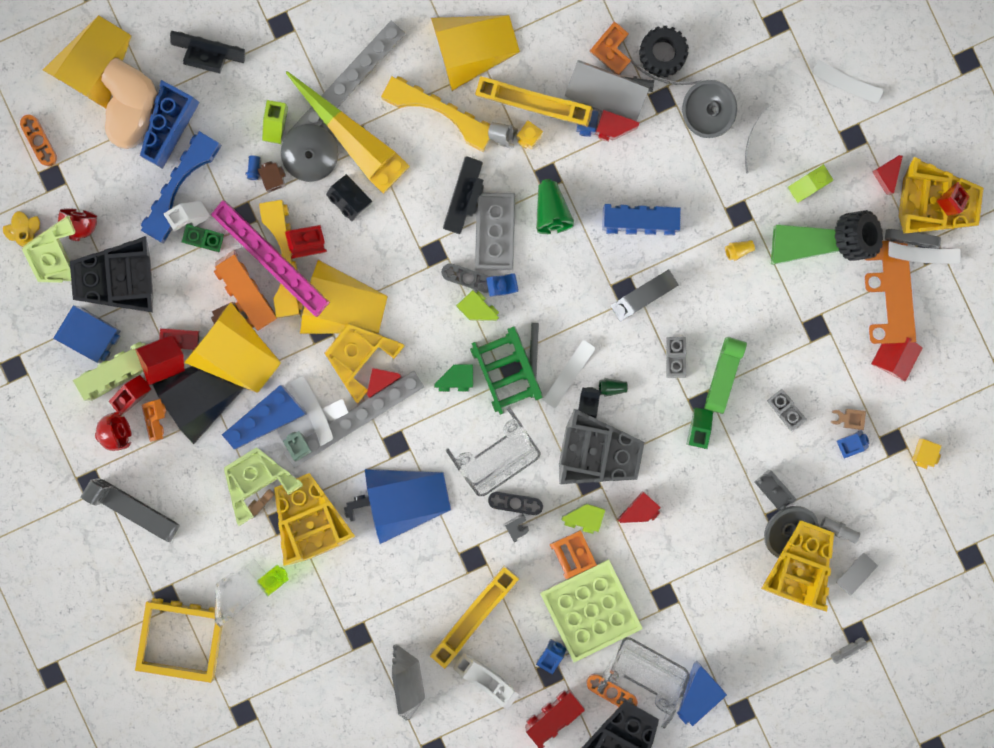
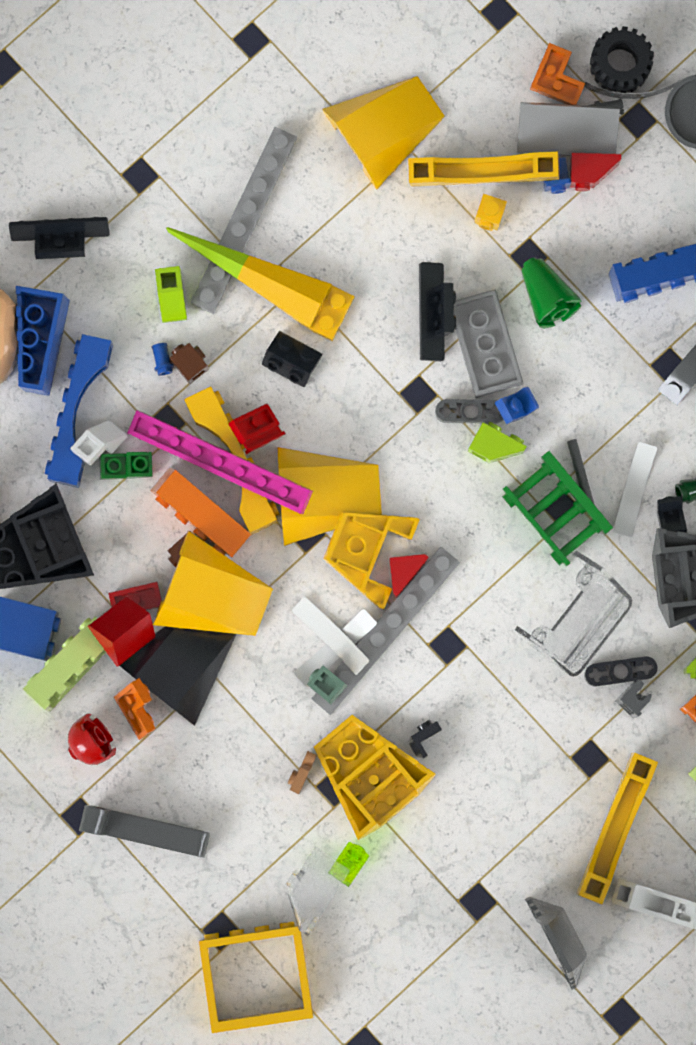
camera: 20 degrees left, 5 degrees down
(130, 394) = (96, 688): red slope -> none
(252, 474) = (280, 739): yellowish green wing -> none
(268, 415) = (276, 661): blue wedge -> none
(313, 139) = (207, 318): dark grey dish -> none
(403, 95) = (319, 212): yellow arch -> none
(404, 499) = (482, 710): blue wedge -> none
(458, 376) = (498, 536): green slope -> none
(502, 134) = (457, 221): light grey piece -> none

